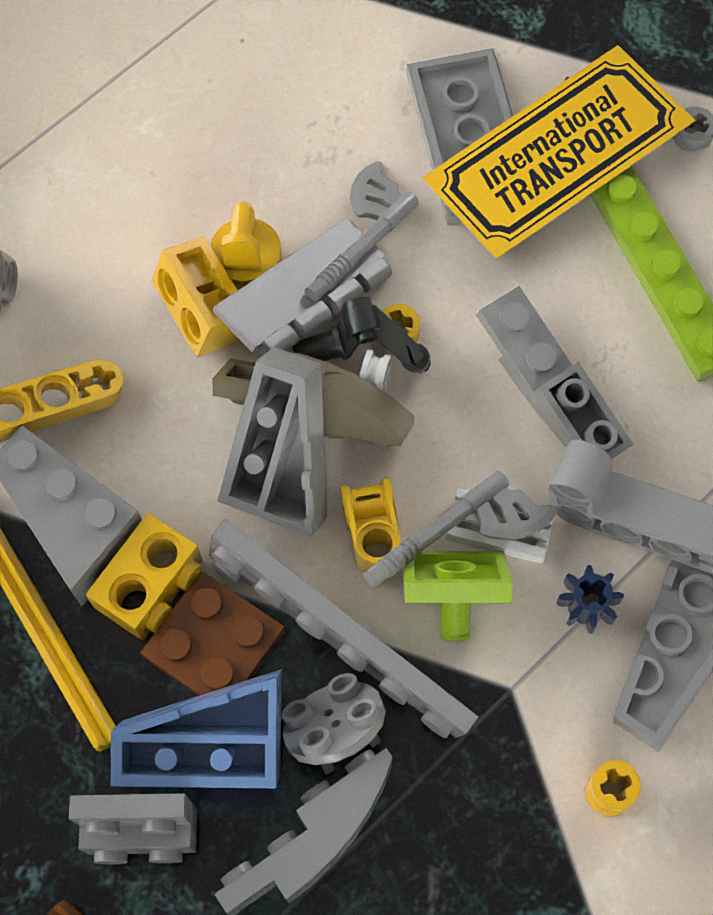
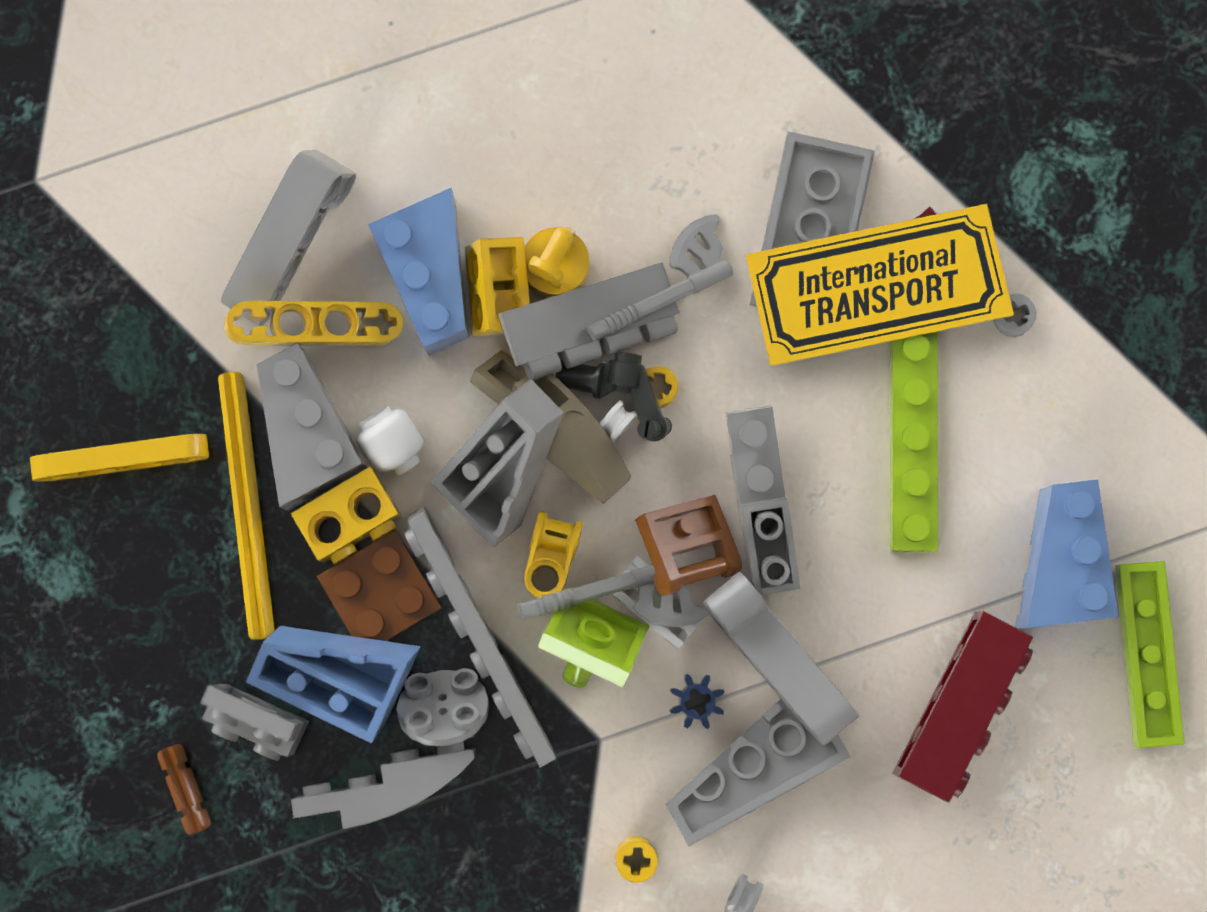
camera: 20 degrees right, 15 degrees up
(121, 313) = (425, 264): none -> medium blue wedge
(158, 484) = (390, 440): none -> white head
(495, 435) = (685, 529): none -> dark orange plate

